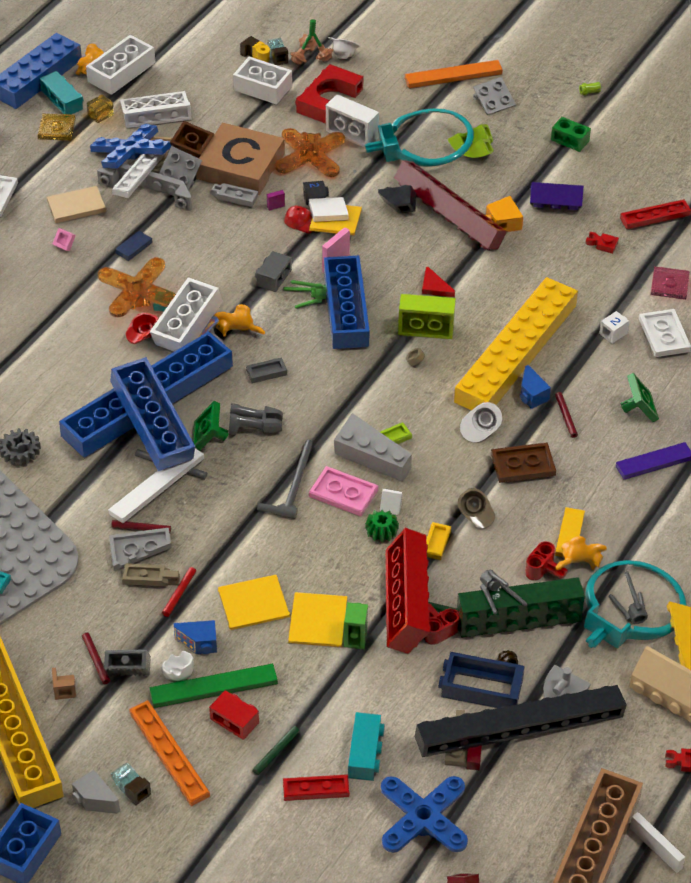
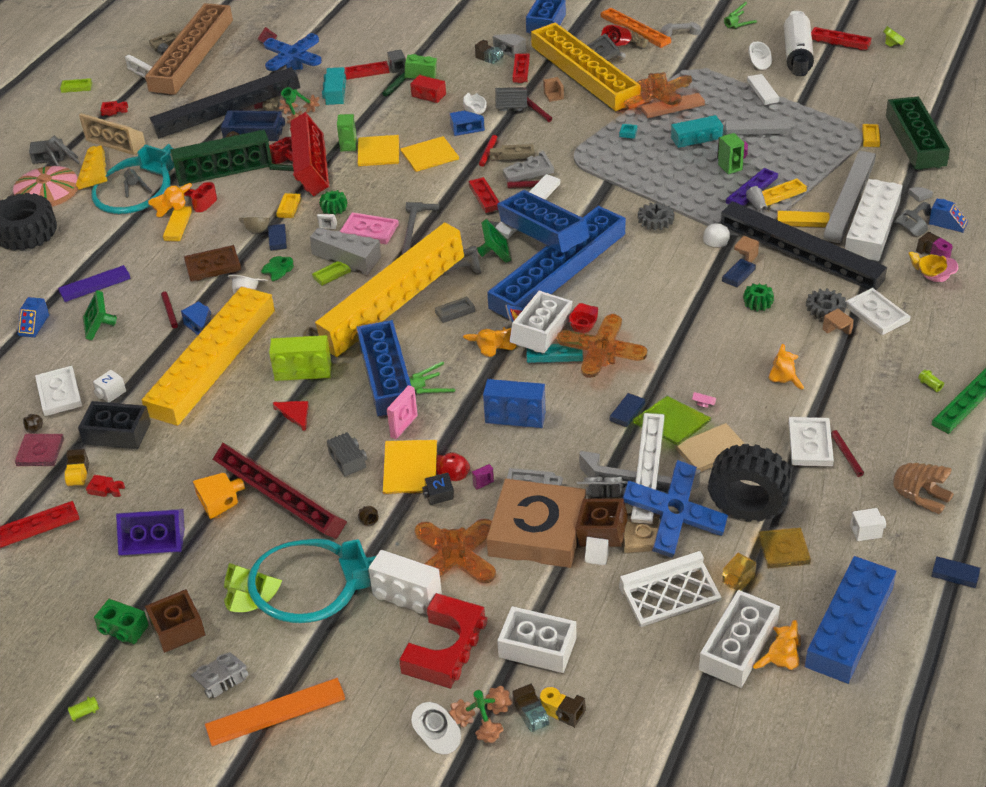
camera: 175 degrees right, 5 degrees down
(61, 93) = (799, 588): teal brick -> none
(77, 124) = (753, 465): none -> black tyre
(93, 741) = (521, 68): none -> red plate
(99, 229) = (679, 419): none -> clear neon green piece
(169, 753) = (468, 73): orange tile -> none
(201, 512) = (484, 194): none -> red plate
(213, 685) = (440, 107): green tile -> none
(233, 245) = (514, 403): none -> blue brick
(237, 754) = (420, 65): none -> bright green brick
(269, 787) = (396, 61): none -> dark grey brick
(273, 271) = (467, 395): dark grey brick -> none
(326, 367) = (391, 287): none -> yellow brick
(328, 209) = (417, 466): white tile -> none
(375, 183) = (368, 515): none -> dark brown plate
(389, 233) = (347, 454): none -> dark grey brick
(400, 198) = (340, 492): black slope -> none
(429, 691) = (290, 97): none -> plant
(449, 449) = (278, 267): none -> green plate
(449, 493) = (277, 237): none -> dark blue tile
(492, 581) = (240, 139): dark grey plant -> none
(528, 123) = (175, 620): none -> reddish brown brick
(562, 681) = (193, 136): light grey shield -> none
(601, 280) = (114, 425): none -> black brick
(631, 253) = (76, 467): none -> leg
(681, 302) = (32, 423): none -> dark brown plate

